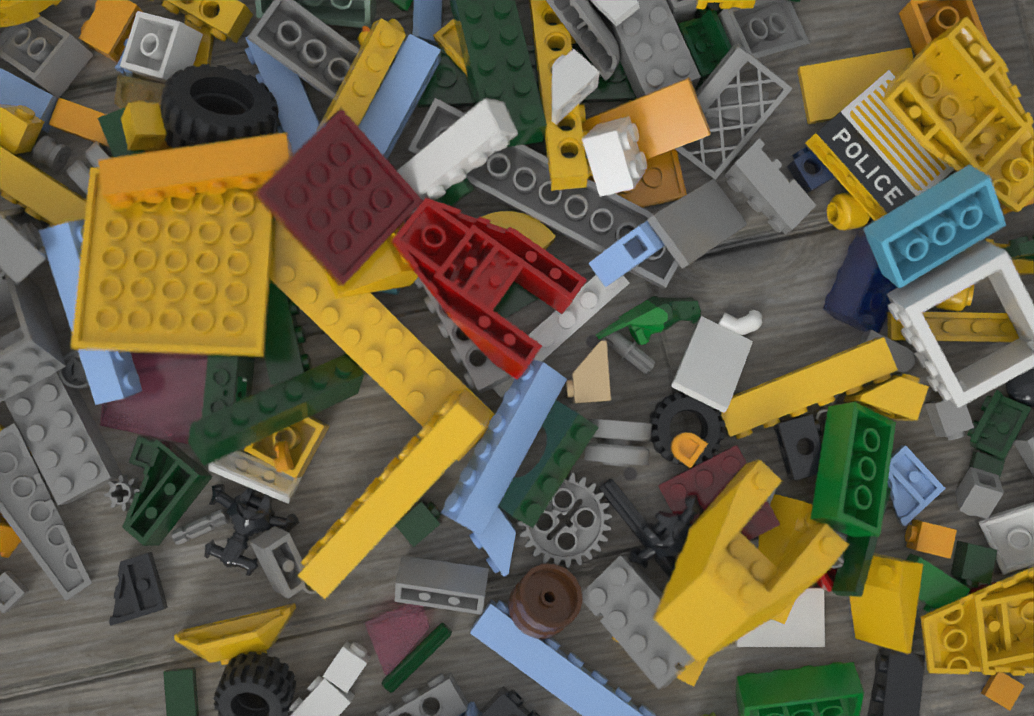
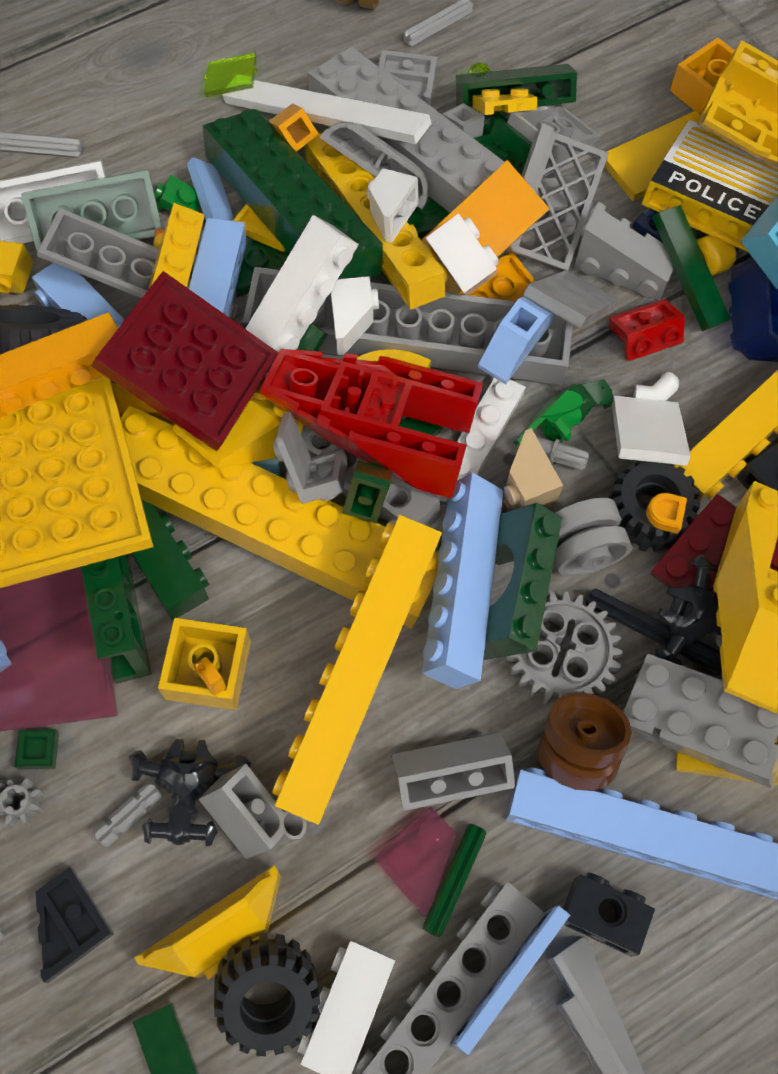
camera: 25 degrees left, 20 degrees down
(165, 494) = (72, 783): dark green wedge -> none
(256, 475) = (178, 723): white tile -> none
(274, 409) = (179, 618): dark green brick -> none
(347, 666) = (372, 918): white brick -> none
(412, 319) = (309, 477): none -> light grey bracket
(419, 522) = (397, 710): dark green brick -> none
(452, 352) = (367, 491): none -> dark green slope
(497, 541) = (493, 698): light blue slope -> none
(500, 177) = (352, 310): none -> white slope
(759, 262) = (649, 328): none -> red bracket
(819, 222) = (691, 268): none -> dark green tile

